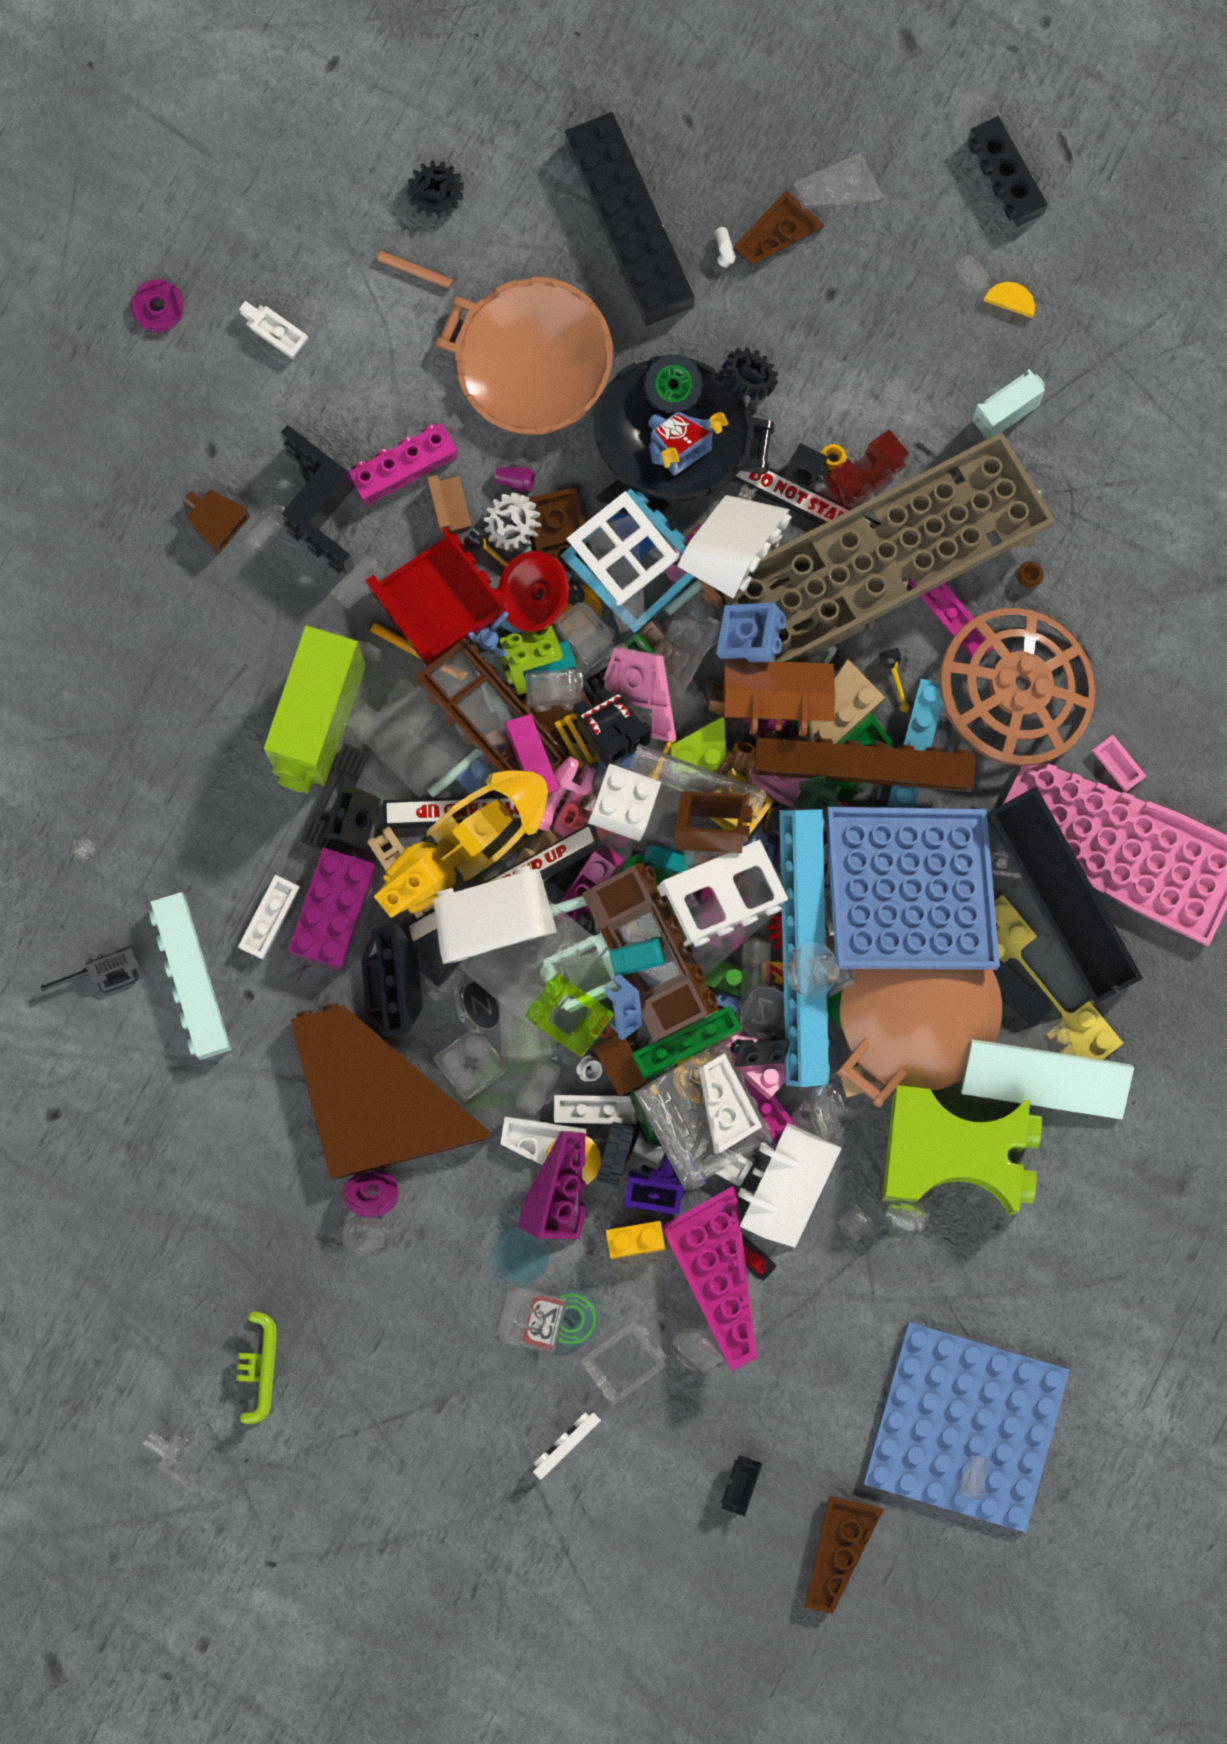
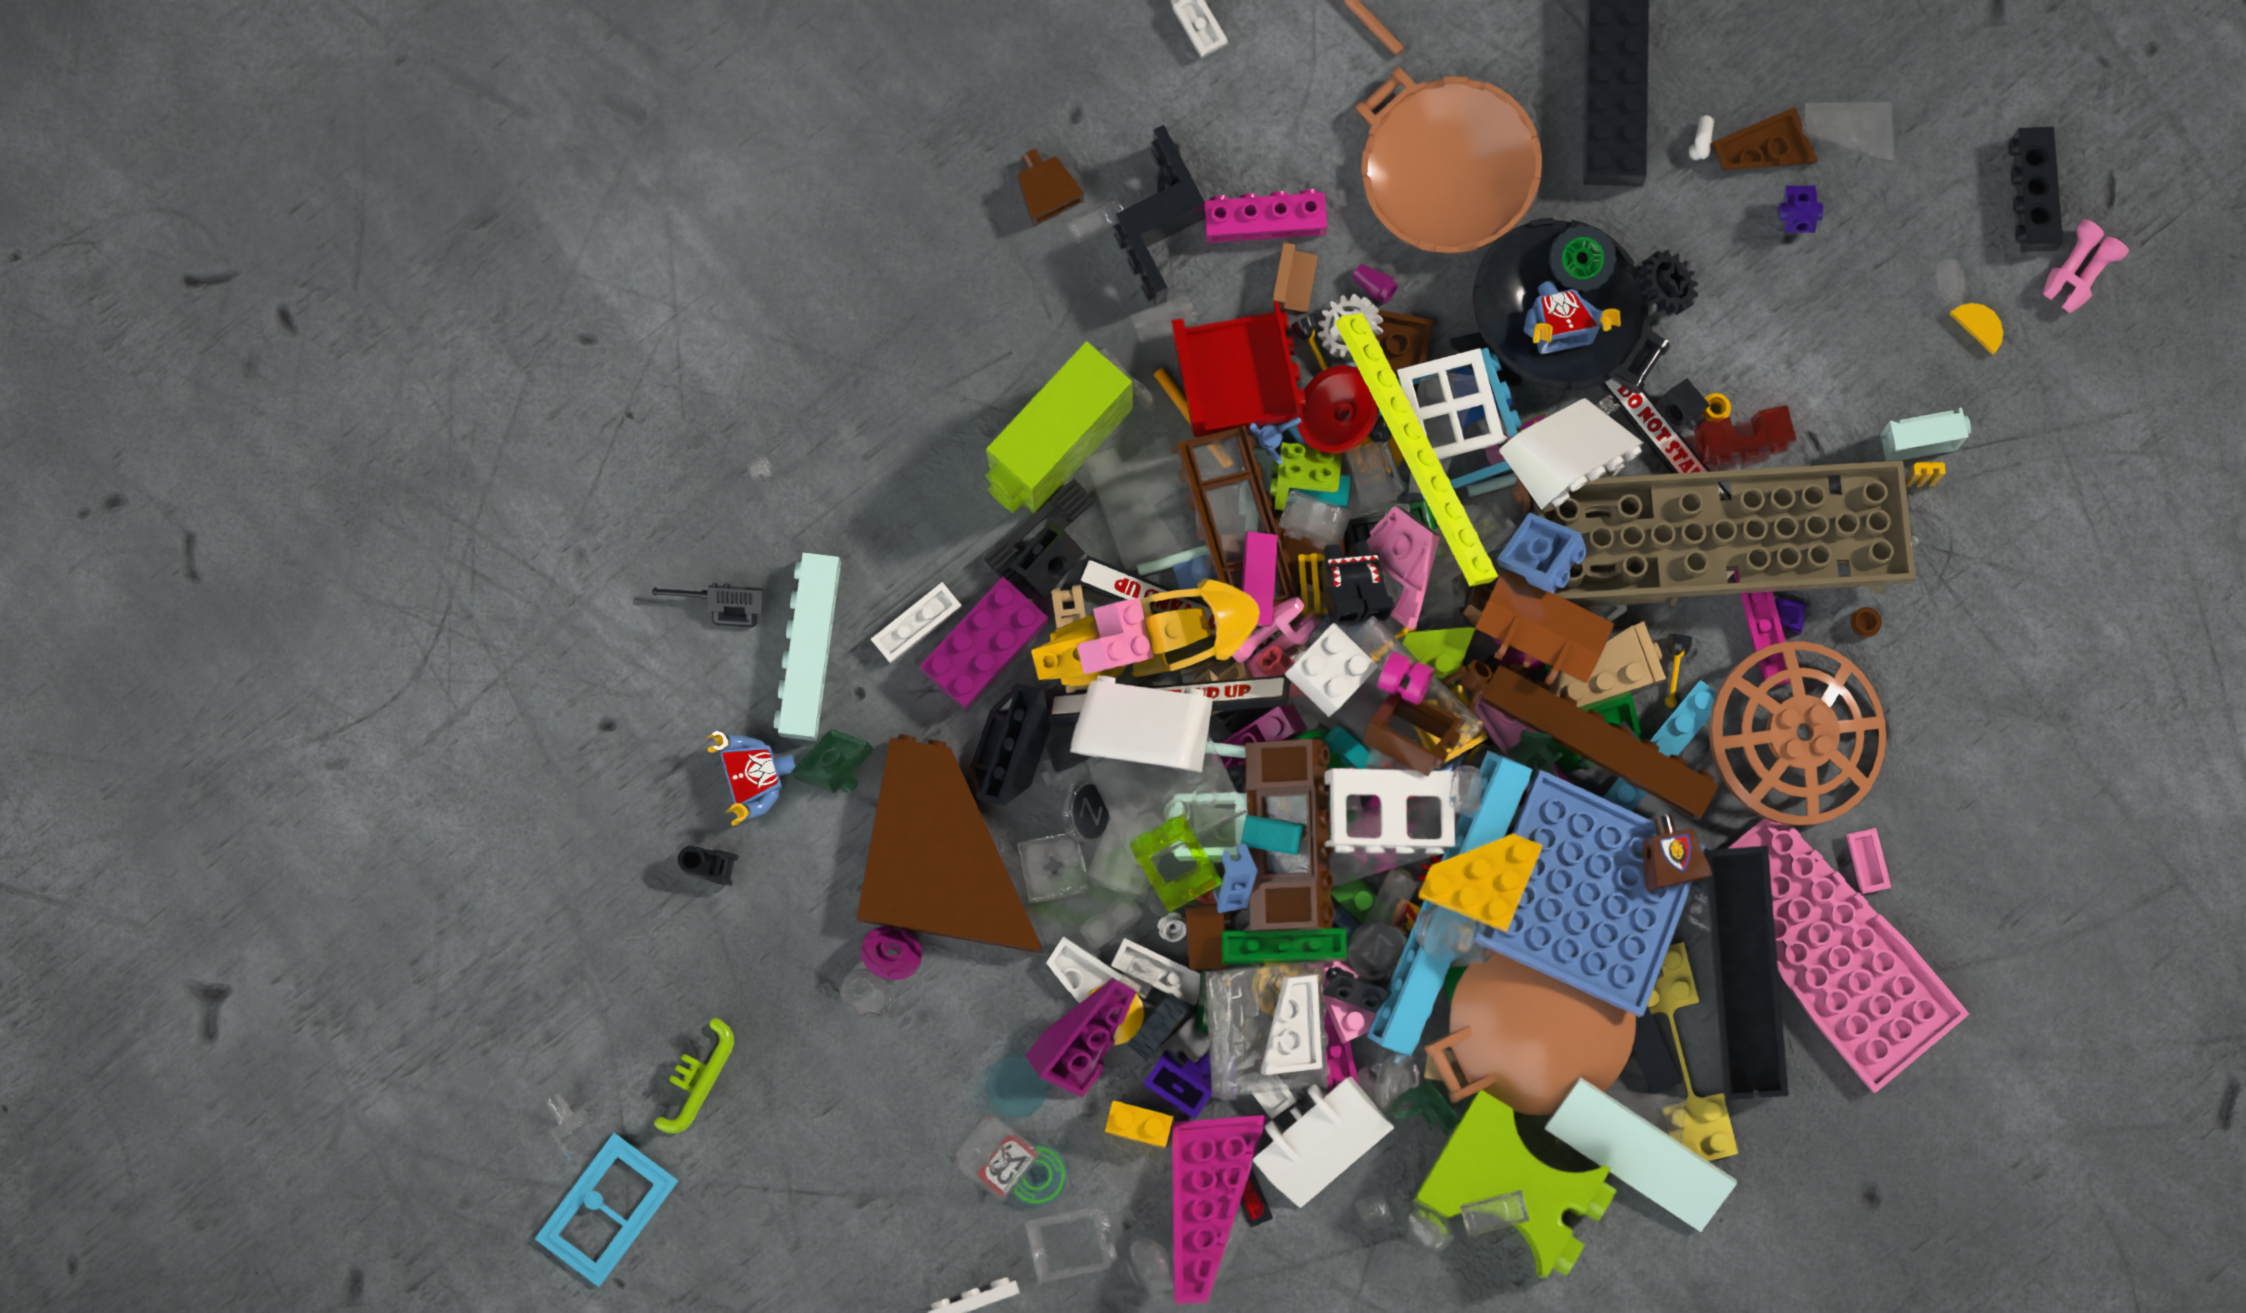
camera: 25 degrees right, 0 degrees up
(189, 1190) = (709, 865): none -> black piece
(190, 1100) = (751, 773): none -> torso
(207, 1504) = (593, 1200): none -> medium azure door
(253, 1060) = (833, 762): none -> clear green tile
(443, 854) = (1121, 639): none -> bright pink brick
(582, 1119) = (1140, 976): none -> clear tile
(611, 594) = (1416, 449): none -> neon yellow plate
(678, 785) = (1395, 673): none -> dark pink wheel
(777, 850) = (1466, 790): none -> clear brick
(825, 916) = (1484, 881): none -> yellow plate
(828, 269) = (1800, 215): none -> dark purple brick
(859, 1112) = (1429, 1100): none -> clear green piece
(872, 675) = (1651, 653): none -> tan plate
(954, 1179) = (1494, 1213): none -> clear tile
(965, 829) = (1672, 856): none -> reddish brown torso
(968, 595) = (1791, 614): none -> dark purple tile
(1024, 433) = (1931, 472): none -> yellow tile
(1086, 195) = (2109, 251): none -> bright pink piece

